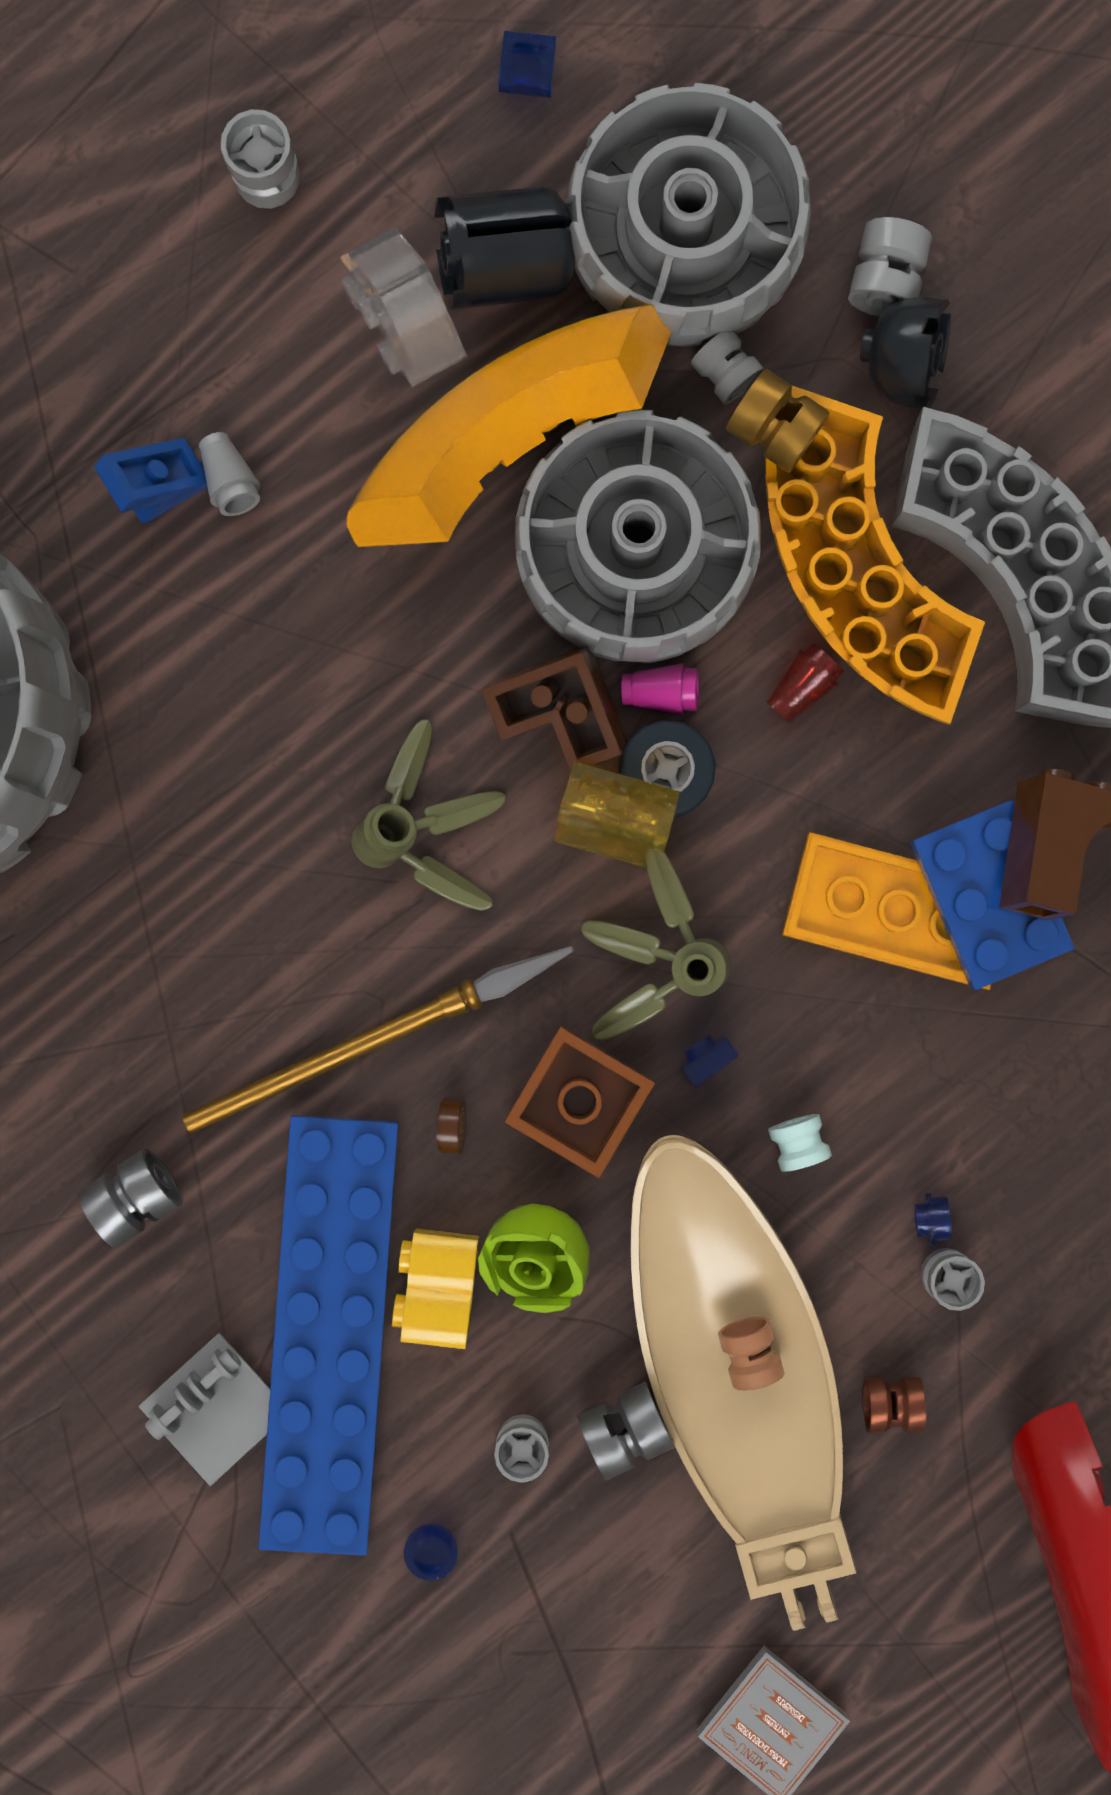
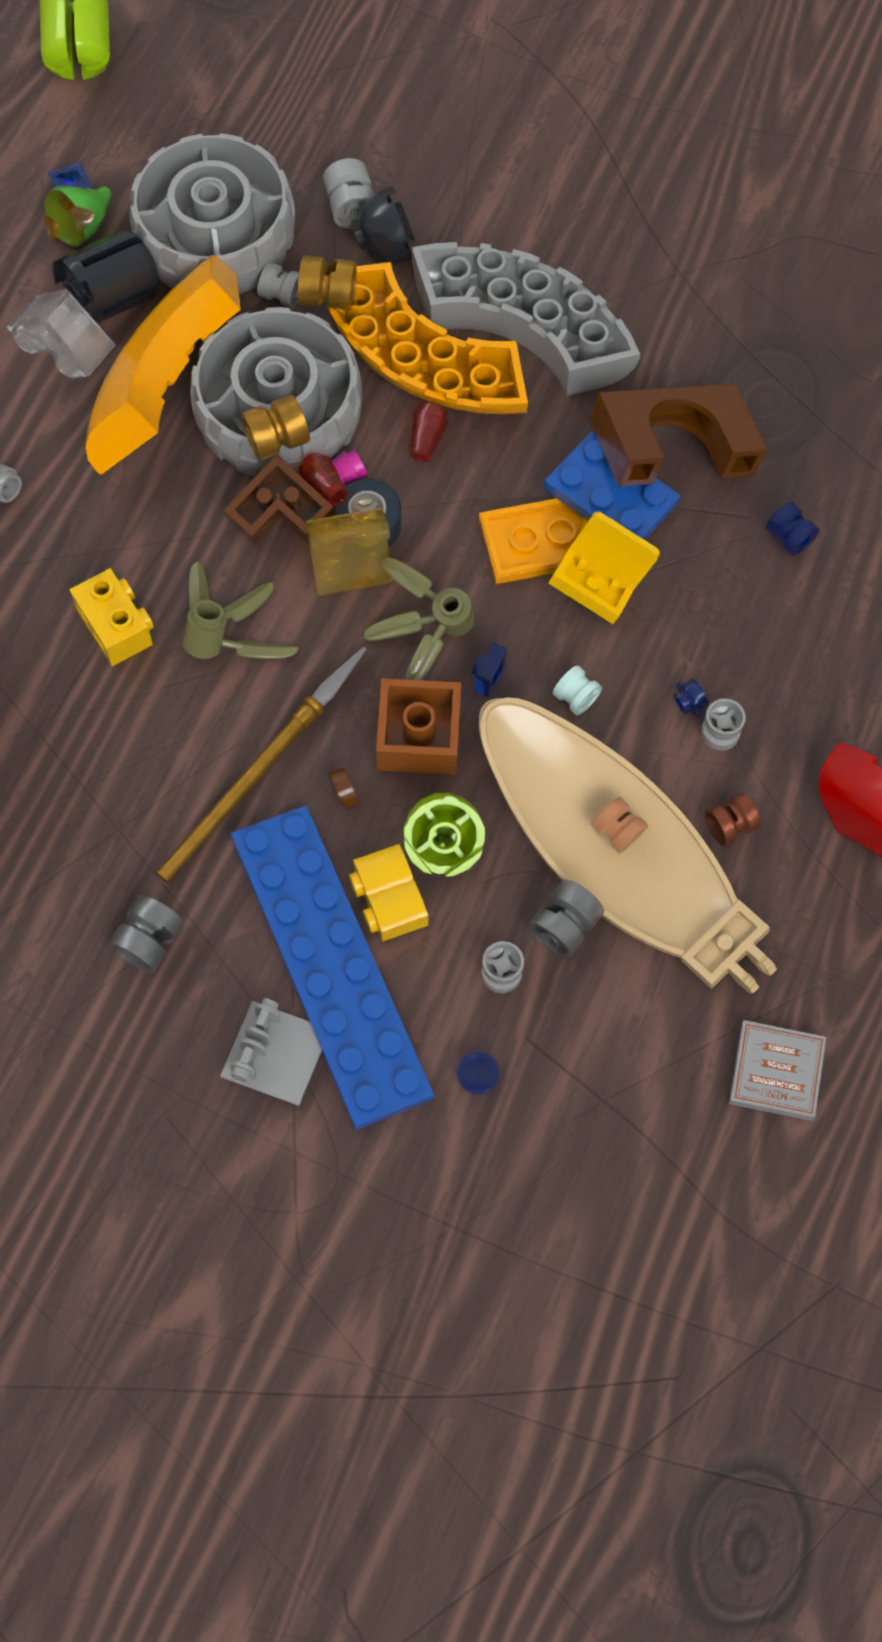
camera: 30 degrees left, 20 degrees down
(284, 751) = (112, 616): none -> yellow brick
(513, 118) = (75, 212): none -> hat
(594, 623) = (275, 427): none -> pearl gold wheel
(631, 704) = (323, 476): none -> clear red cone
(915, 1004) = (604, 566): none -> yellow bracket

